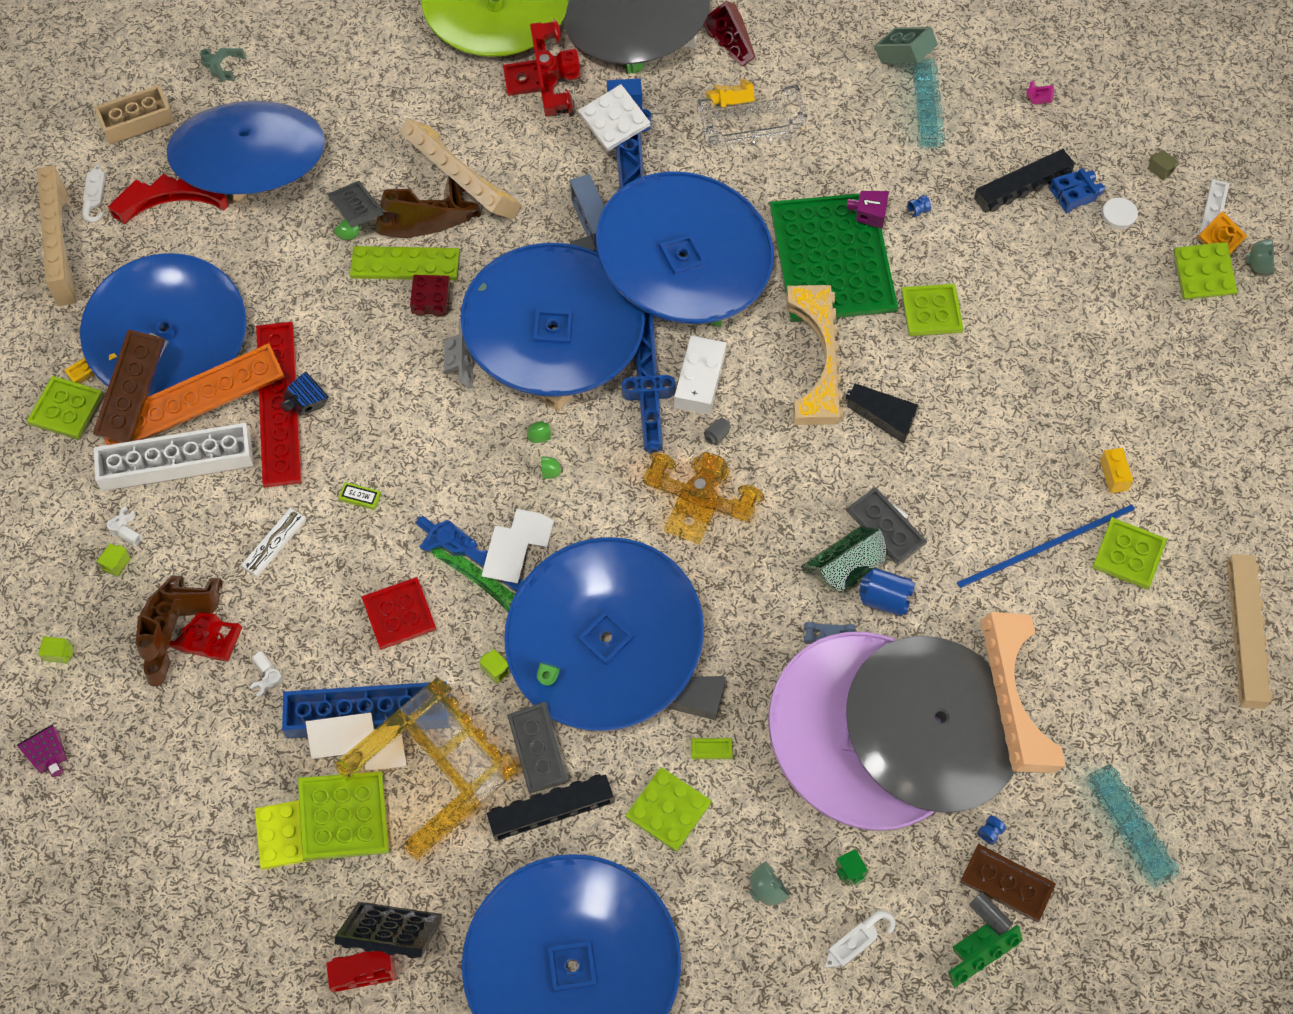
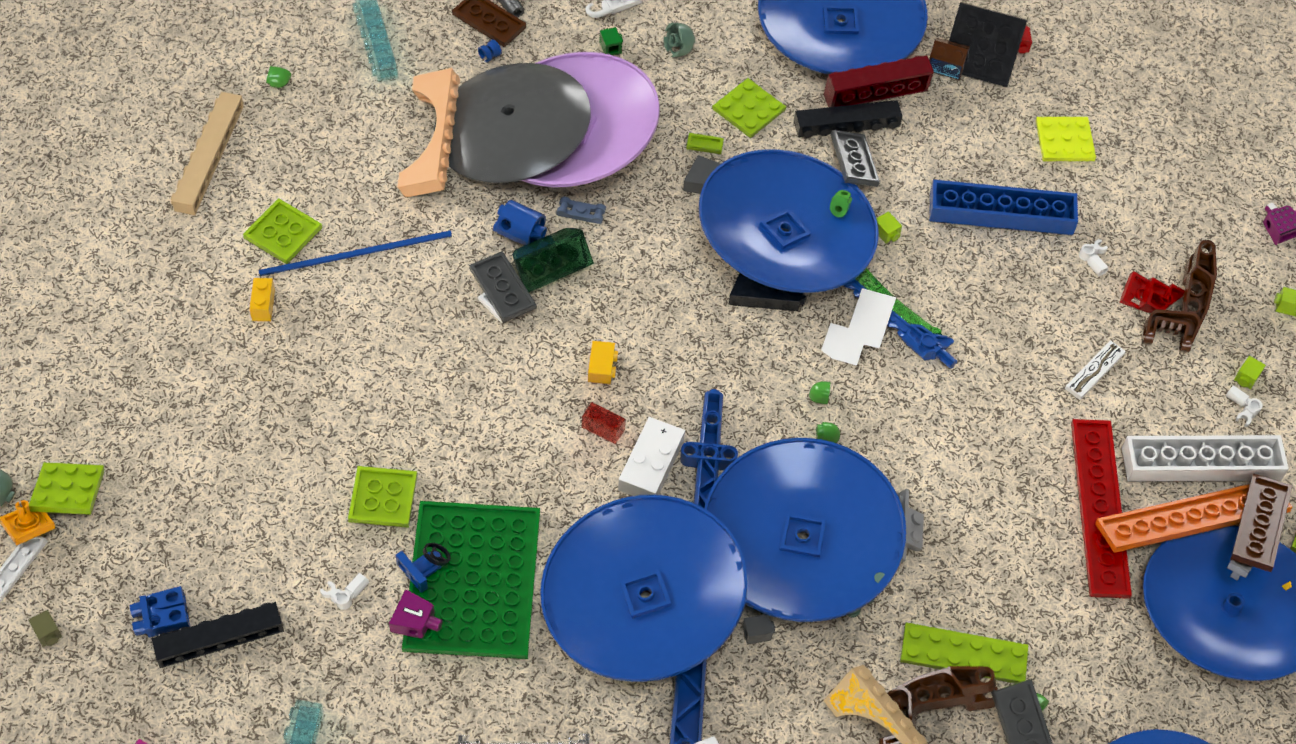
camera: 175 degrees left, 5 degrees down
(304, 396) = (1074, 497): black torso -> none
(341, 734) = (1011, 184): white sticker -> none
(342, 816) = (1022, 136): lime plate -> none
(359, 495) = (1012, 400): tile -> none
(398, 613) = (973, 286): red plate -> none
(430, 295) = (936, 601): dark red brick -> none
(432, 910) = (948, 58): none -> reddish brown slope
(454, 748) = (949, 161): clear yellow piece -> none
(493, 864) = (878, 82): none -> dark red brick
(587, 204) = (744, 668): sand blue brick -> none
(697, 496) = (678, 338): clear yellow piece -> none
(717, 431) = (645, 402): dark grey brick -> none
(752, 401) = (603, 423): none -> clear red brick
(767, 463) = (601, 362): none -> yellow brick
(815, 307) = (512, 504): tan arch -> none
(882, 245) = (423, 566): none -> blue piece
(883, 410) = (470, 394): black slope -> none
(920, 205) = (348, 623): blue wheel -> none
(935, 226) = (343, 599): none -> white bar
(1119, 213) = (124, 580): white tile -> none
(1219, 746) = (278, 77): none -> bright green piece

